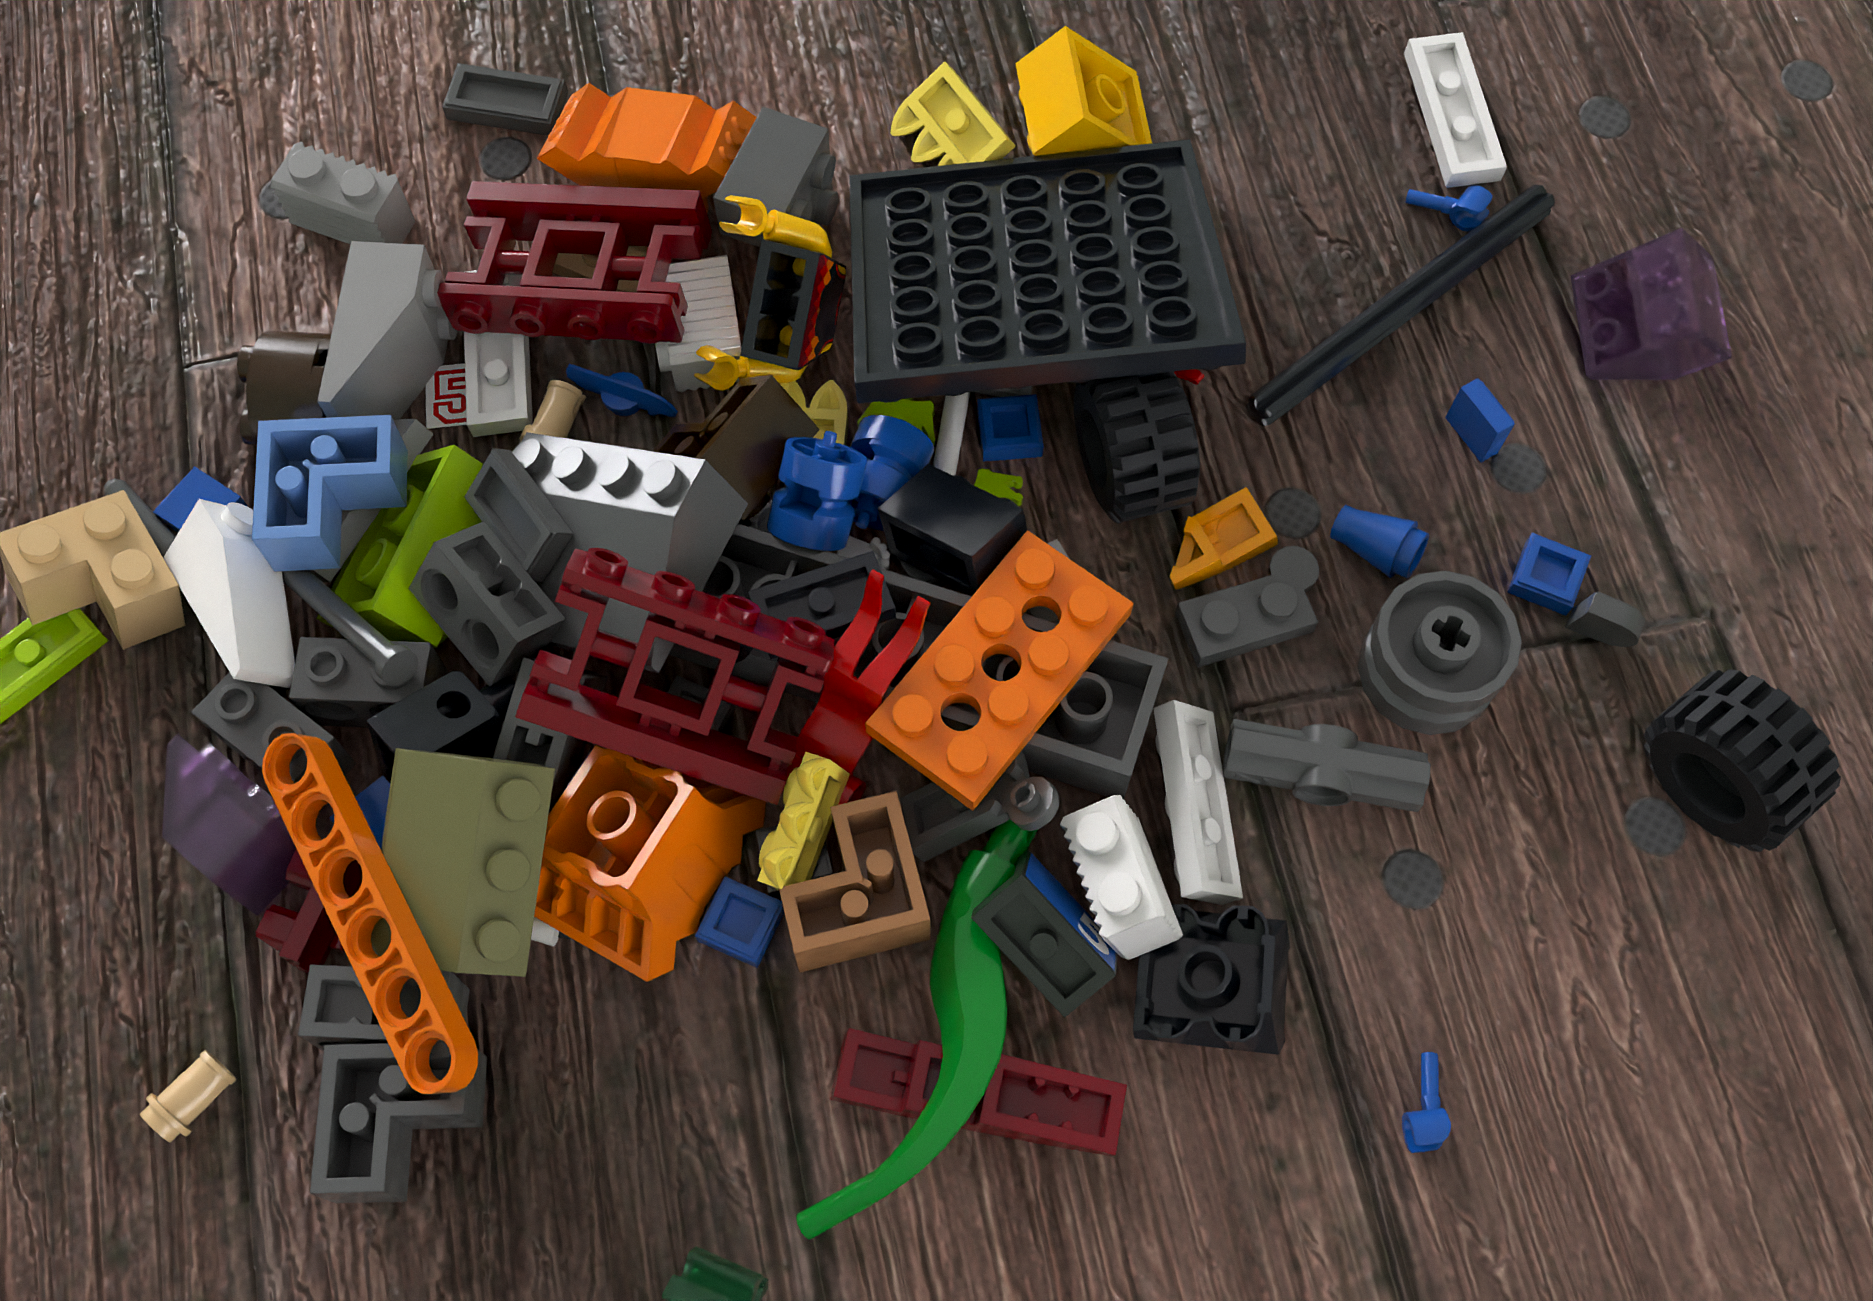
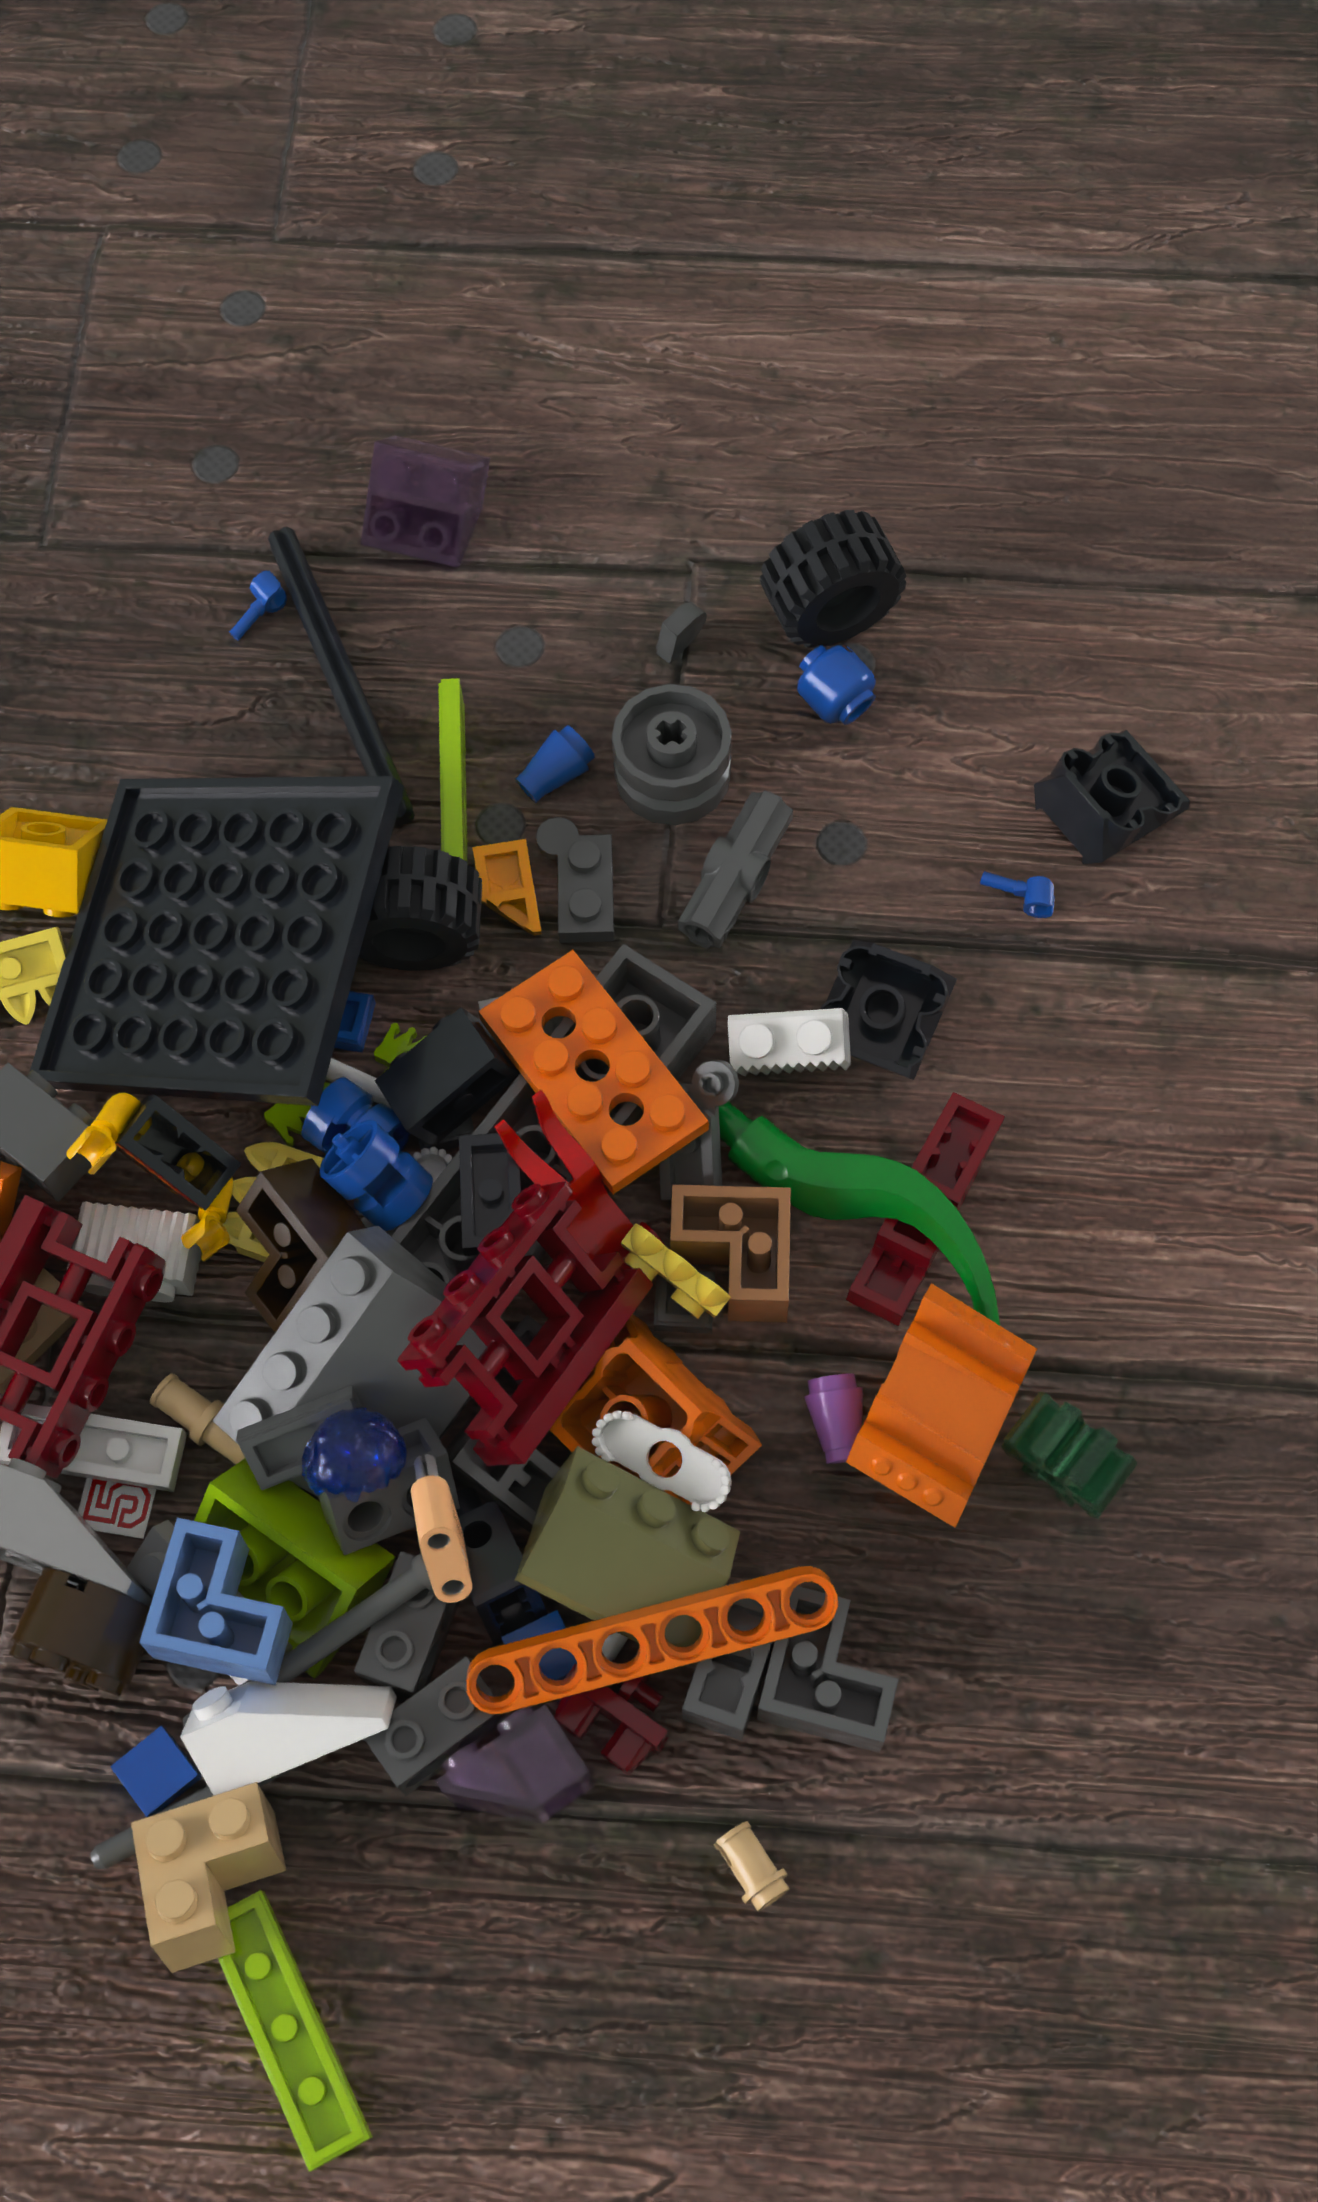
camera: 70 degrees left, 0 degrees up
(421, 654) = (440, 1534): none -> light nougat piece
(488, 552) = (353, 1454): none -> clear blue hair
(587, 828) = (628, 1441): none -> white piece
(621, 392) = (179, 1342): blue piece -> none
(699, 1054) = (836, 1413): none -> medium lavender cone
(721, 1164) = (941, 1405): none -> orange slope
(740, 922) = (728, 1359): blue tile -> none
(1047, 935) = (822, 1110): pearl dark grey panel -> none
(1197, 803) = (742, 973): white plate -> none
(1314, 445) = (452, 769): none -> lime tile
(1455, 110) = (167, 568): white plate -> none
(1480, 420) = (475, 654): blue tile -> none
(1549, 574) = (623, 657): blue tile -> none
(1602, 1185) = (1108, 796): none -> black slope
(1610, 810) = (836, 684): none -> blue head

